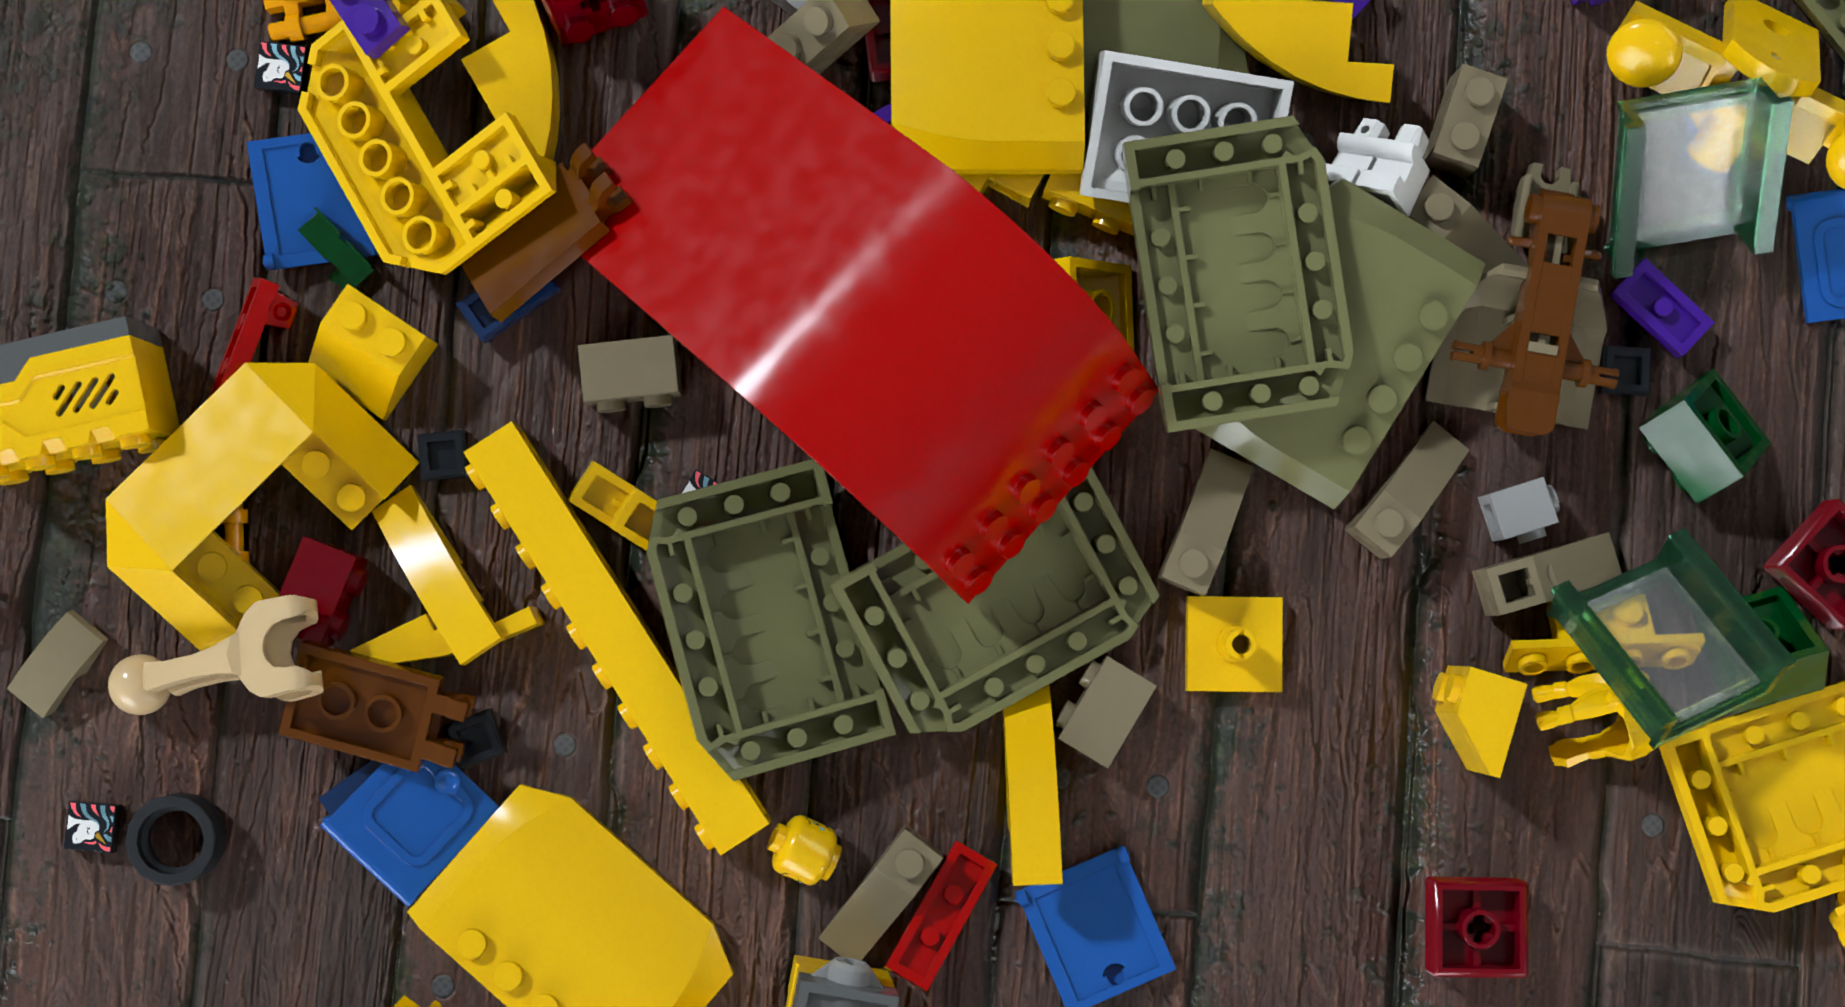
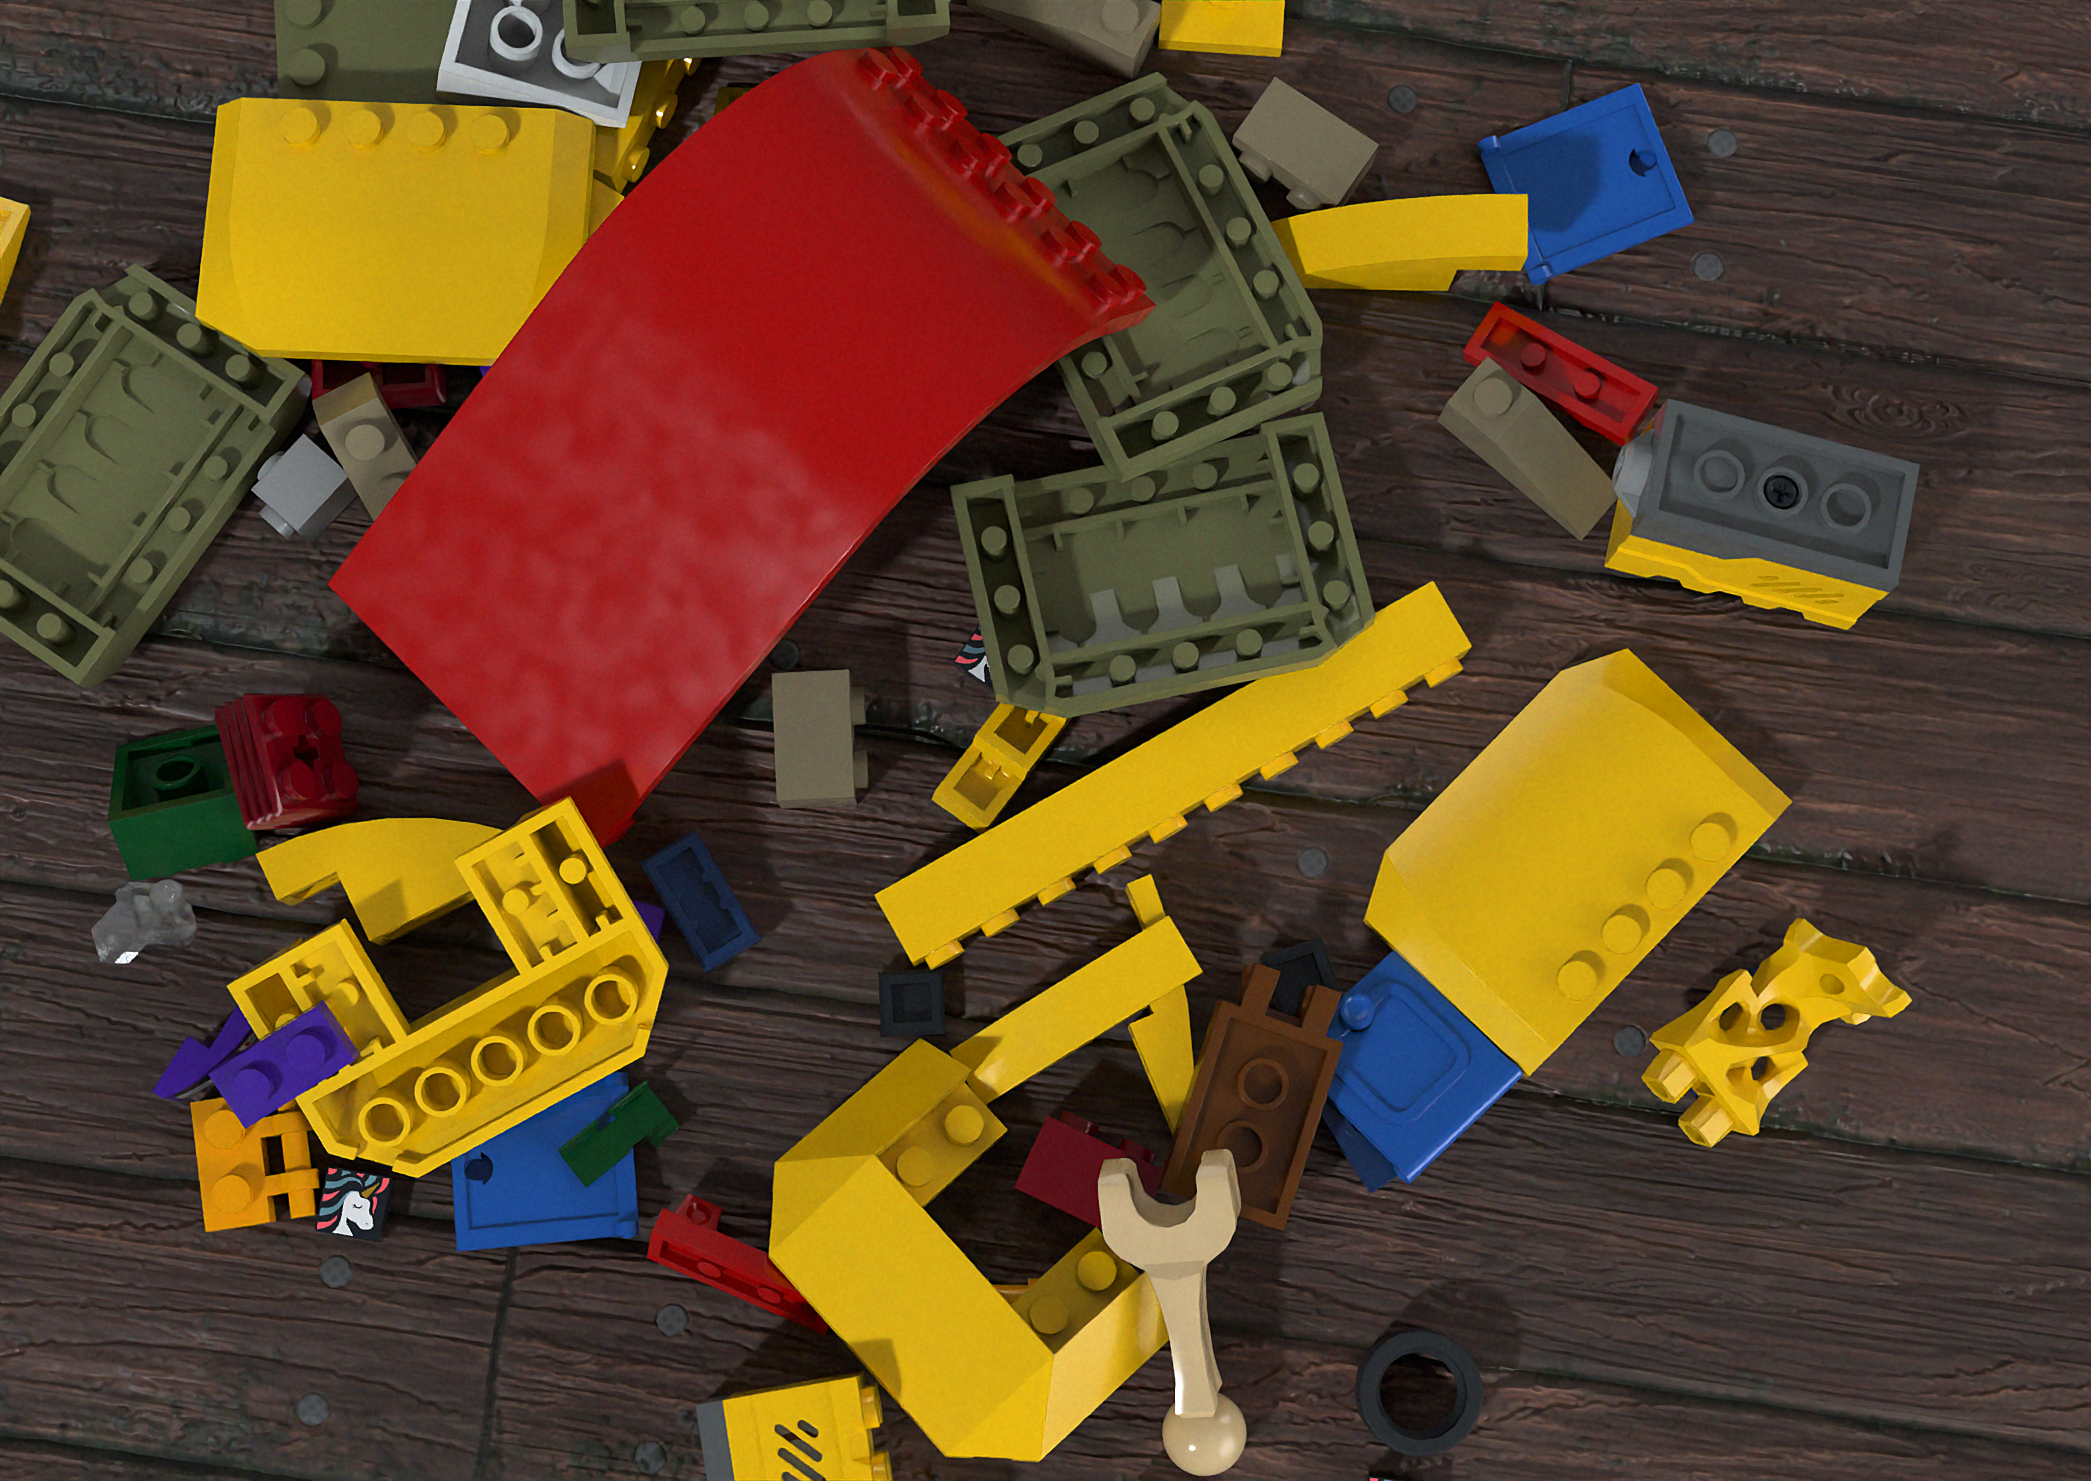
camera: 90 degrees left, 5 degrees down
(369, 351) = (761, 1092): yellow slope -> none
(548, 236) = (632, 817): reddish brown tile -> none
(804, 850) = (1468, 544): yellow head -> none

